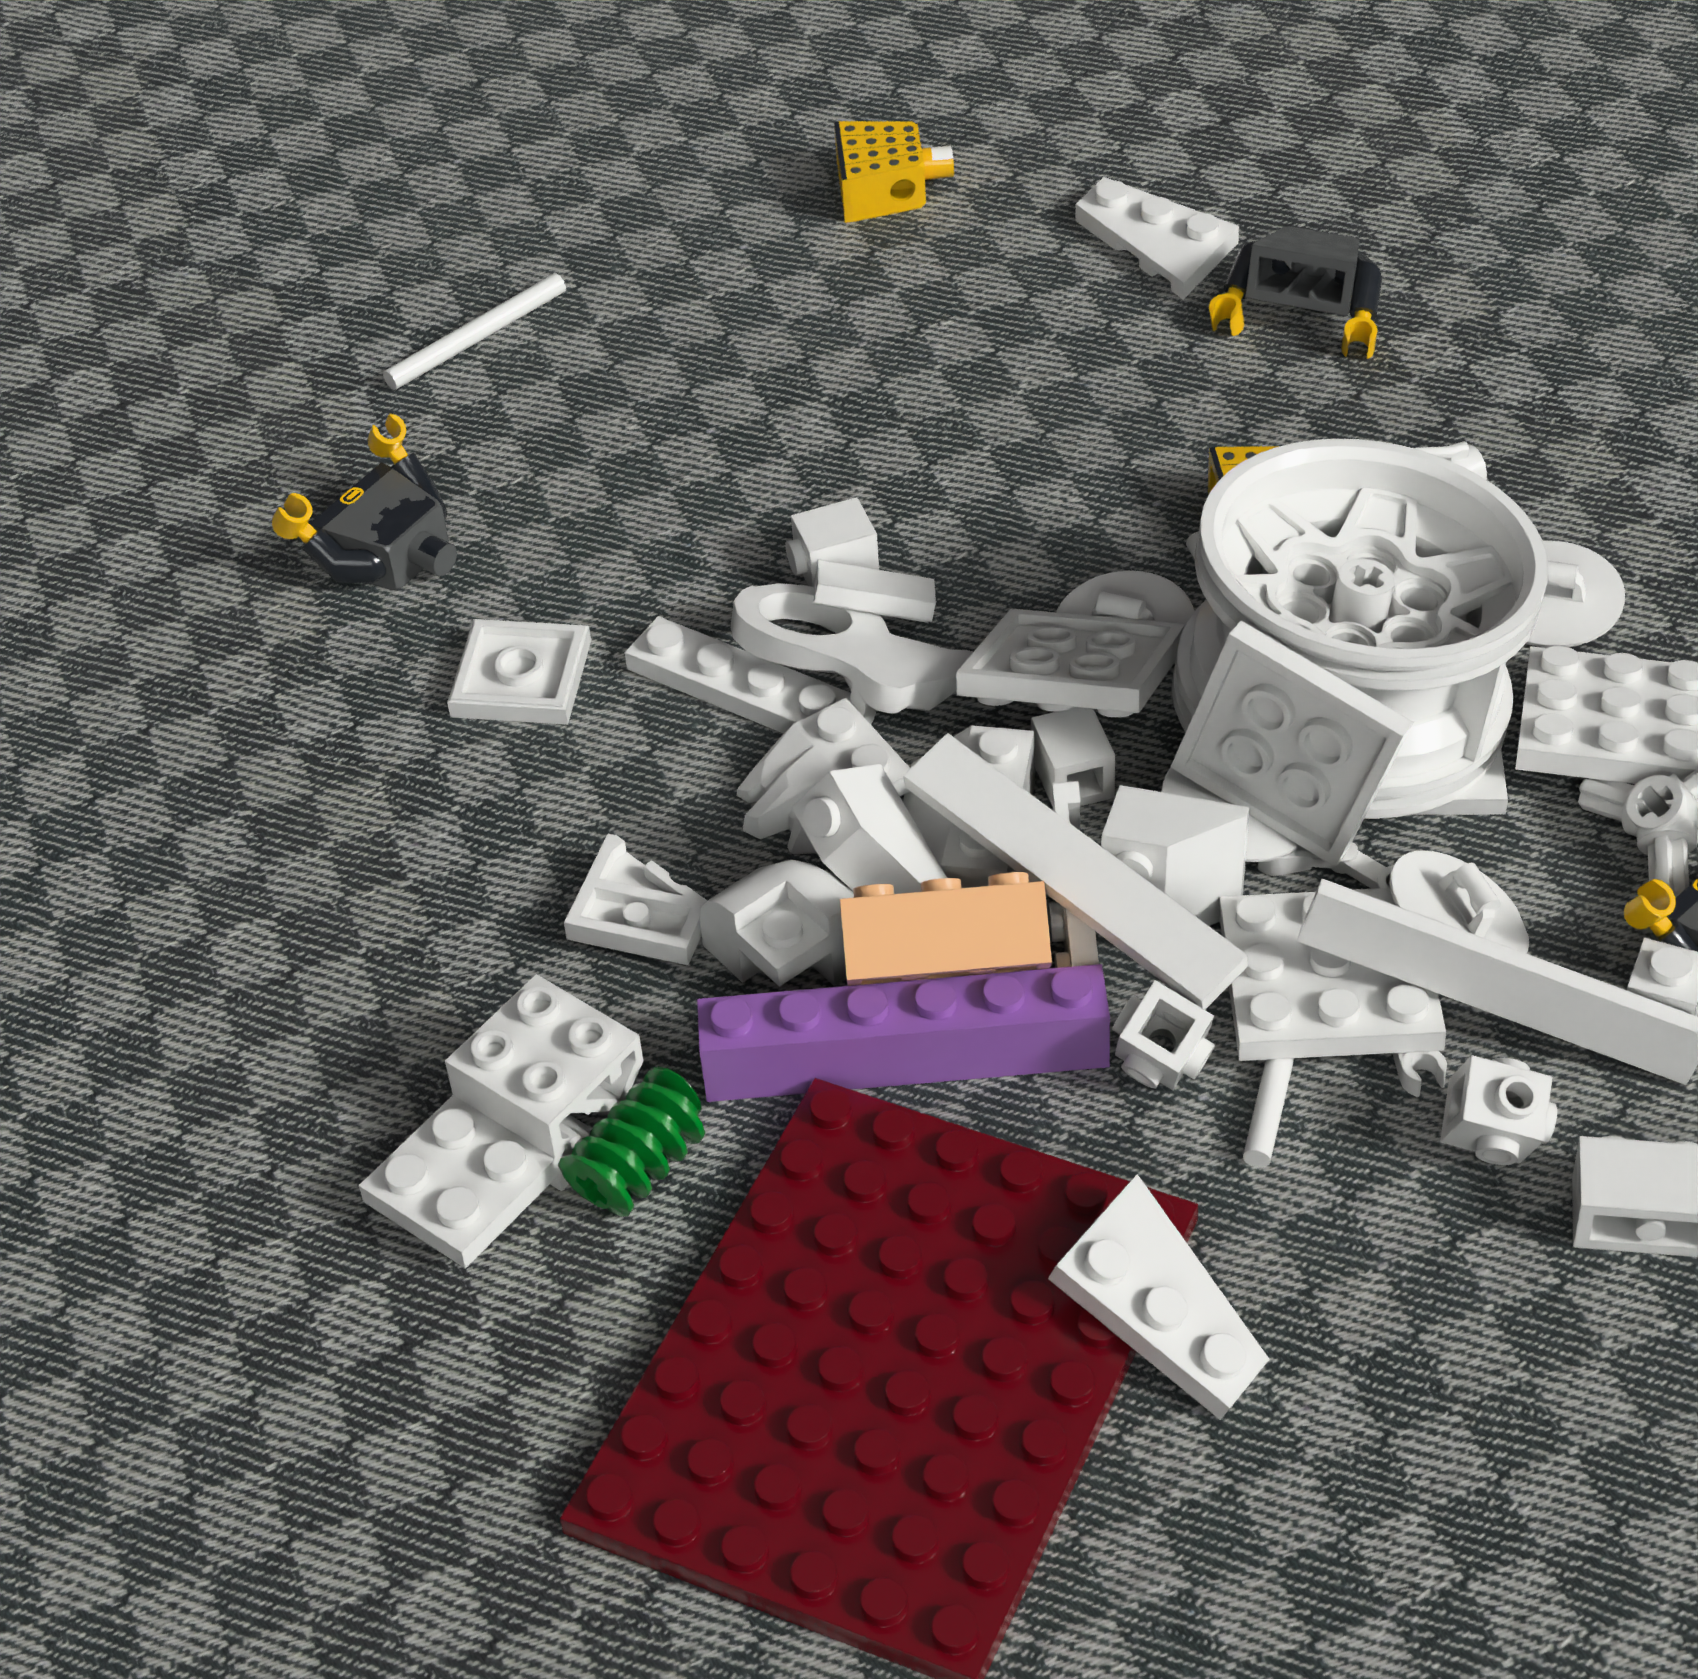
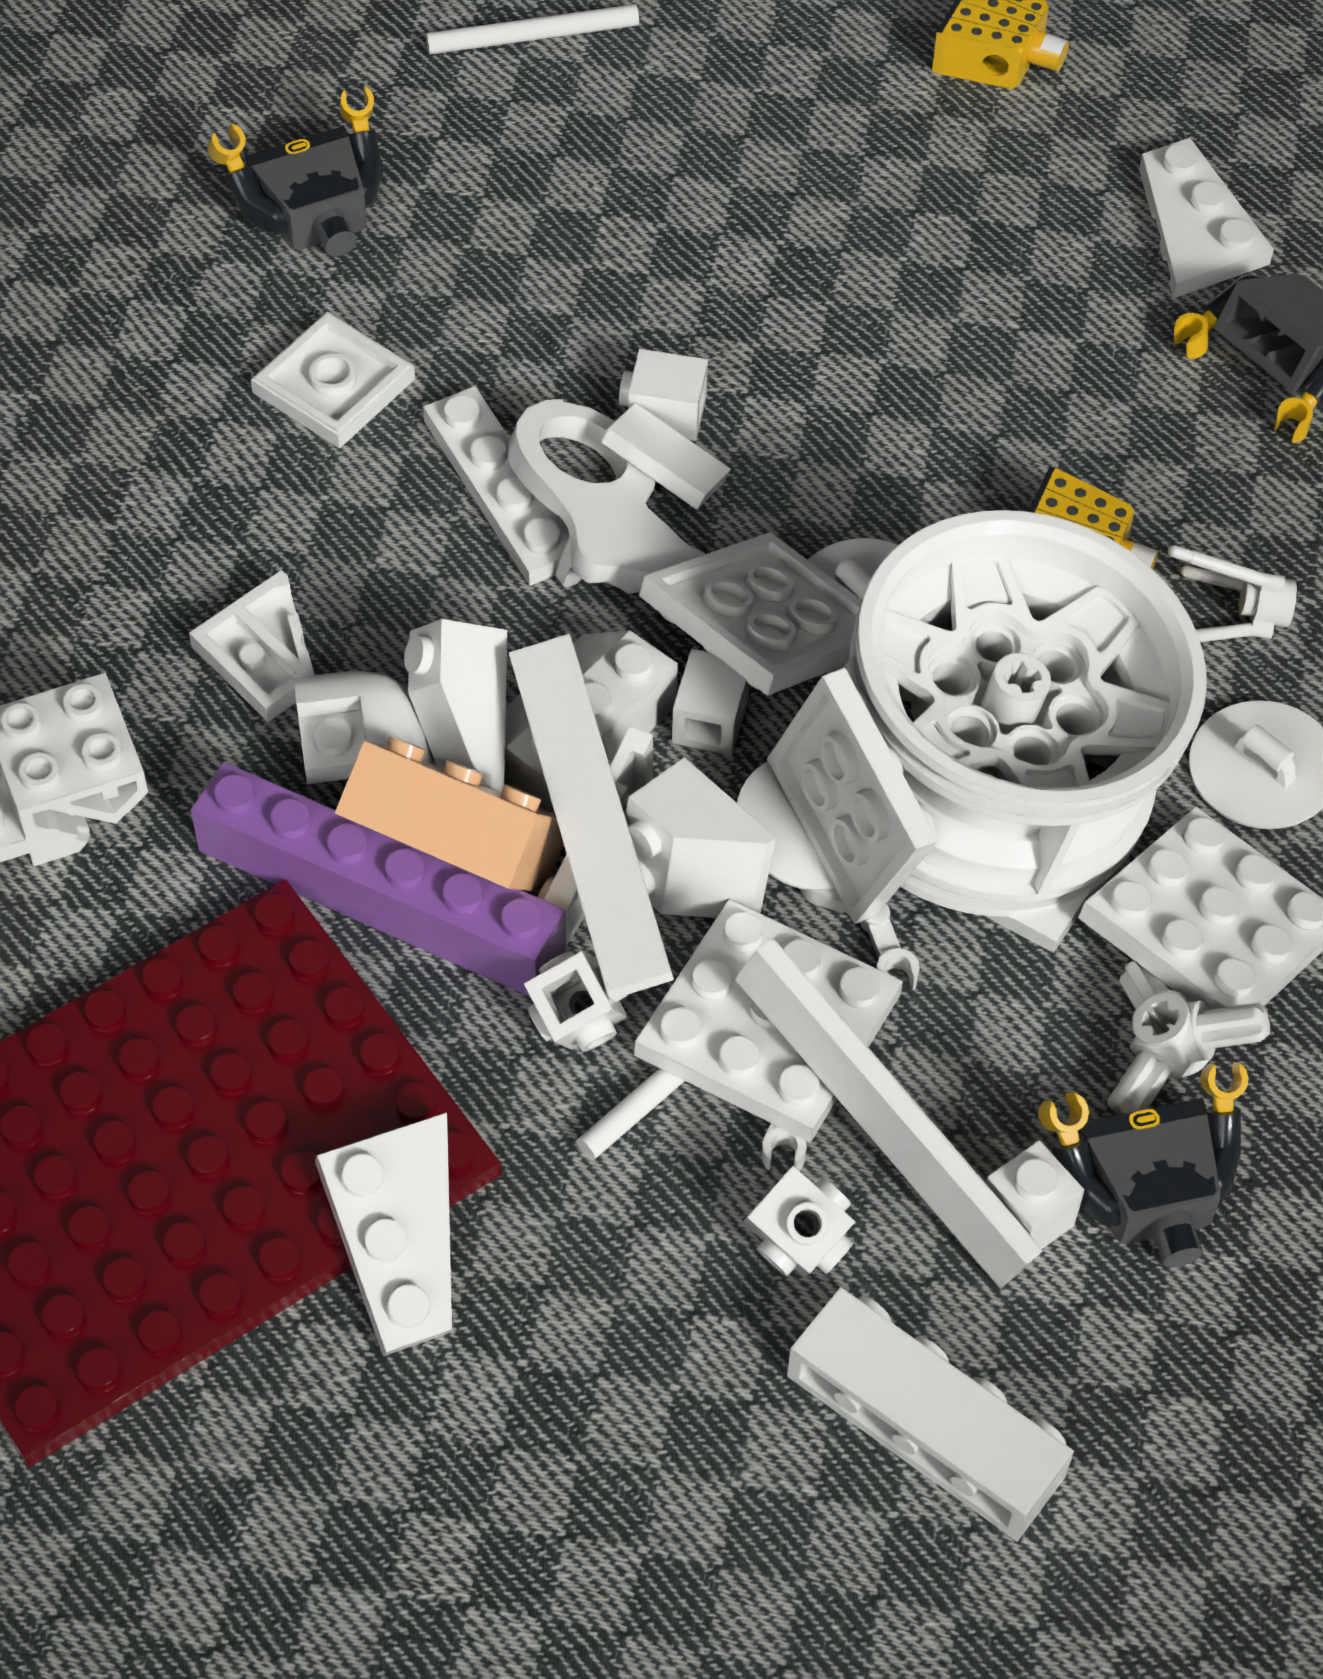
camera: 25 degrees right, 10 degrees up
(635, 1142) = (100, 860): green piece -> none
(801, 757) = (499, 590): white plate -> none
(1457, 896) = (924, 1022): white shield -> none

